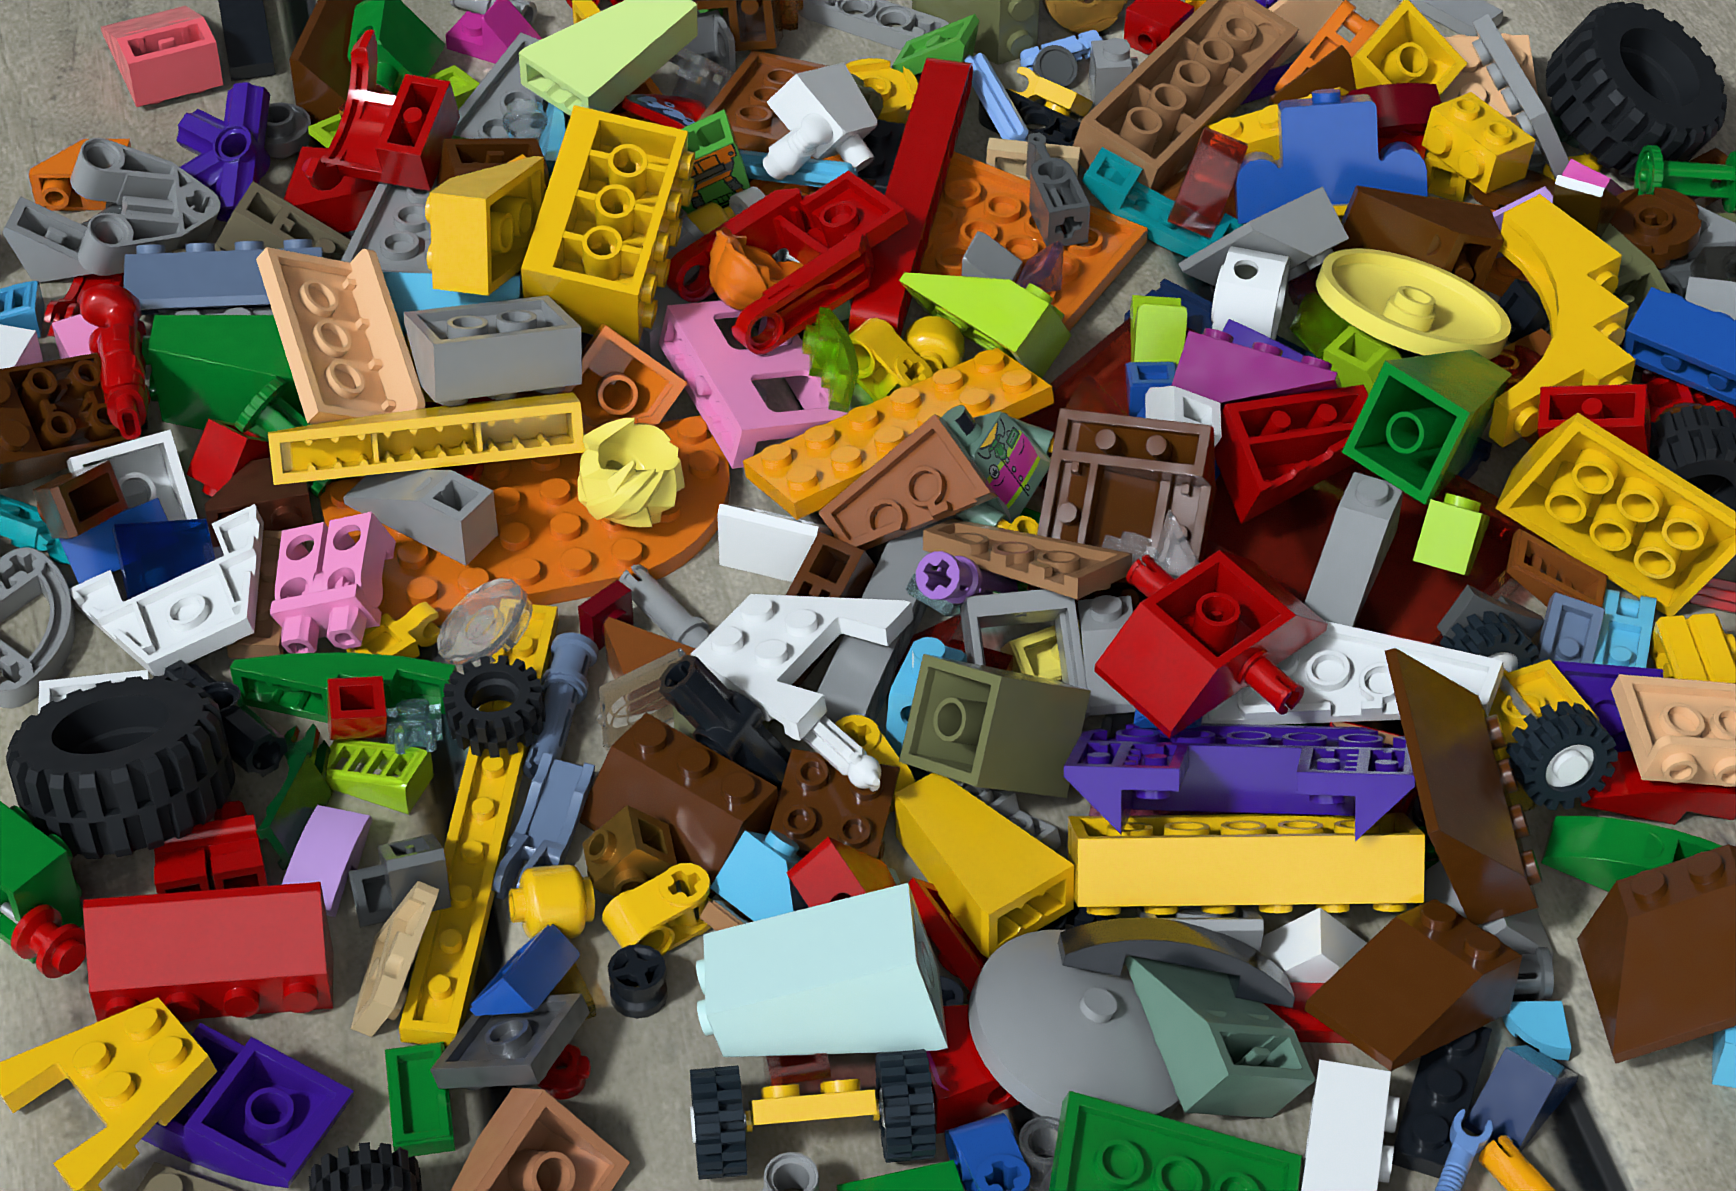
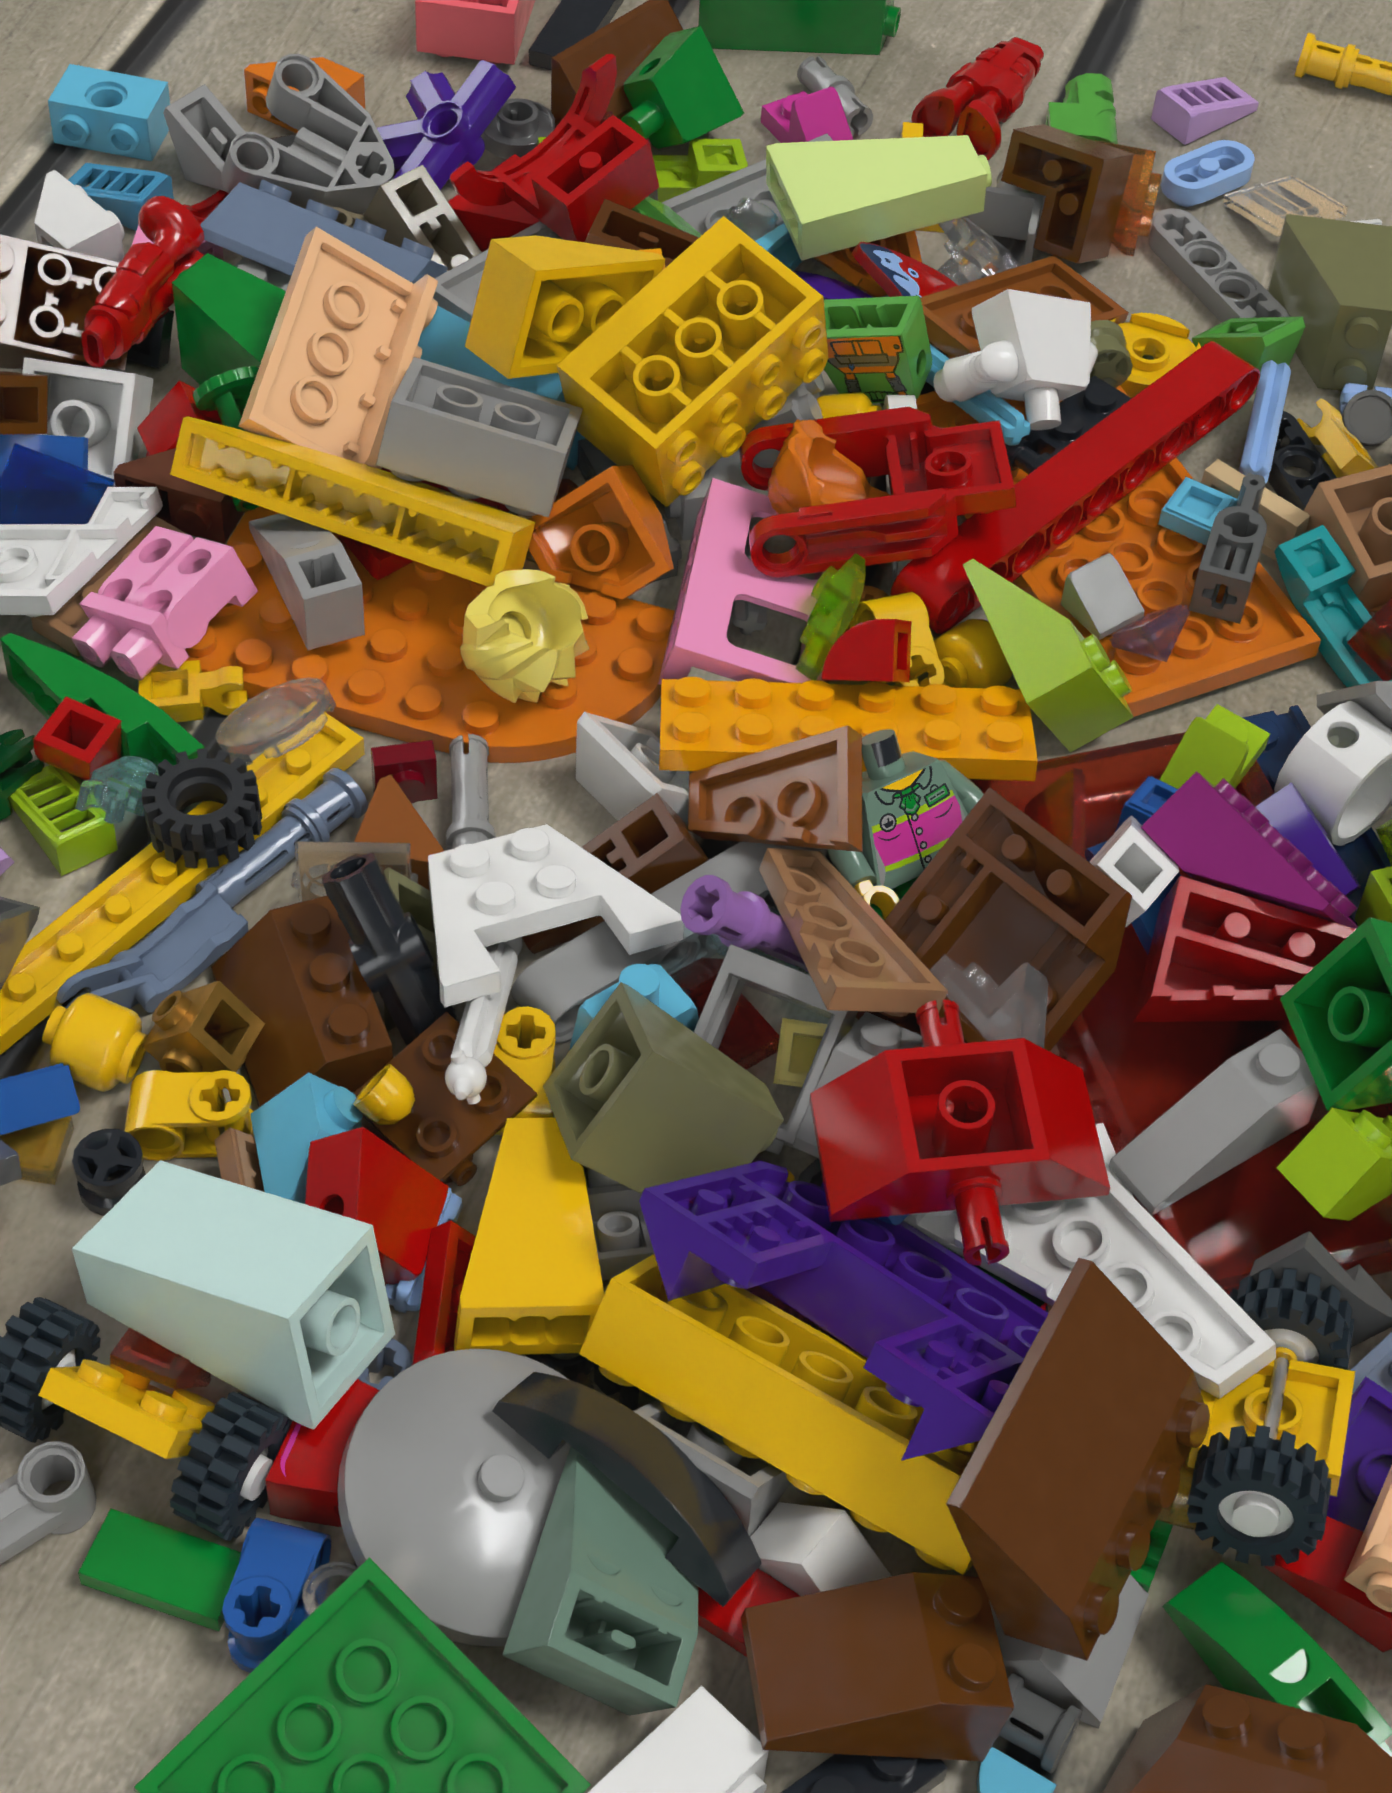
camera: 30 degrees right, 5 degrees up
(805, 819) = (386, 1097): none -> yellow hinge
(884, 370) = (871, 653): none -> red brick
(1001, 179) = (1193, 509): none -> medium azure tile

